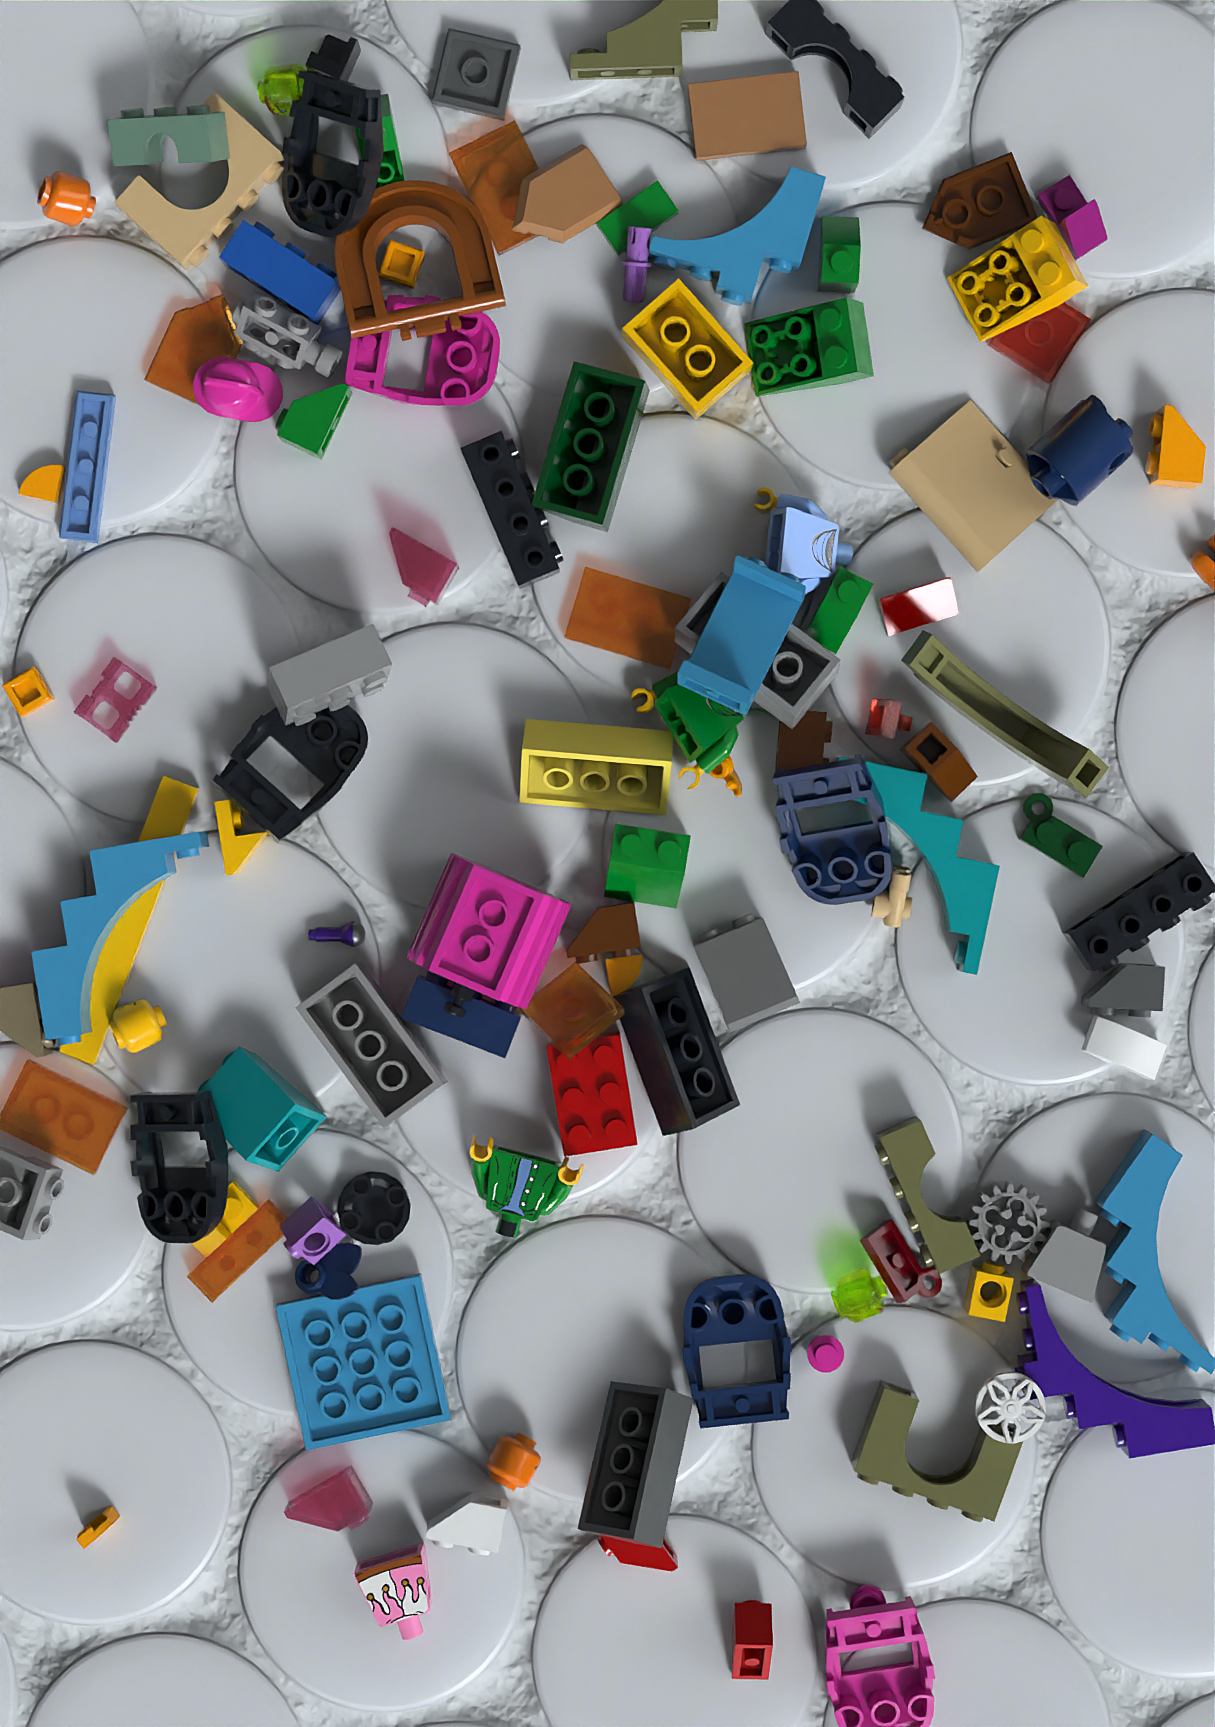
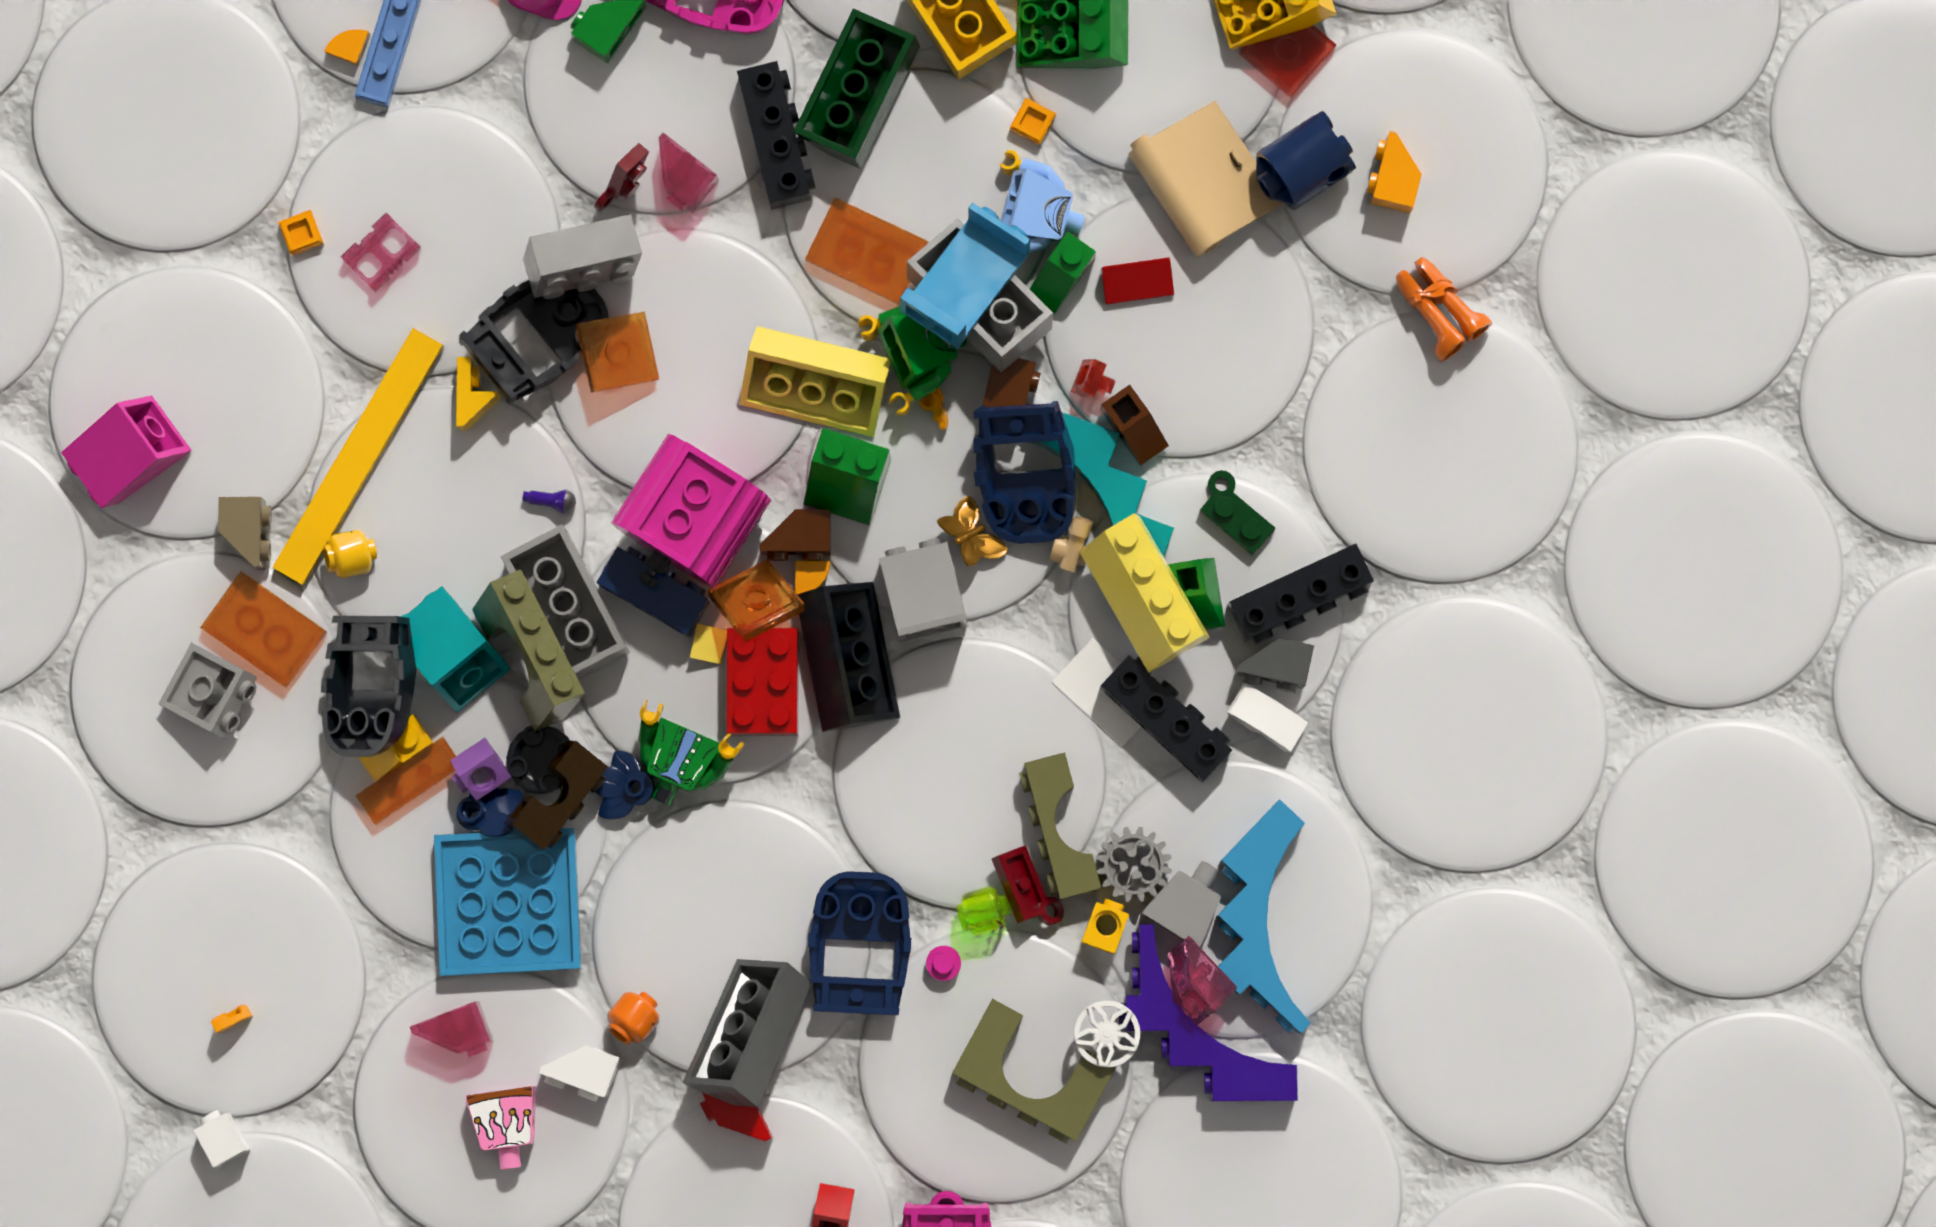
camera: 10 degrees right, 5 degrees down
(108, 1651) = (220, 1138): none -> white brick
(120, 878) = (360, 412): dark azure arch -> none
(320, 1065) = (553, 685): none -> olive arch
(360, 581) = (624, 177): none -> dark red hinge
(383, 768) = (617, 352): none -> clear orange tile
(387, 1279) = (578, 774): none -> dark brown arch
(456, 1222) = (617, 786): none -> dark blue plate
(528, 1059) = (709, 644): none -> light yellow sticker
(781, 452) = (1032, 121): none -> light orange tile
(788, 912) = (972, 542): none -> pearl gold piece
(951, 1044) = (1082, 683): none -> white sticker
(981, 943) = (1143, 592): none -> light yellow slope
(1002, 718) = (1195, 391): olive arch -> none
(1020, 1065) = (1166, 718): none -> black brick
(1033, 928) = (1201, 587): none -> green slope
(1096, 1338) = (1197, 981): none -> clear pink slope

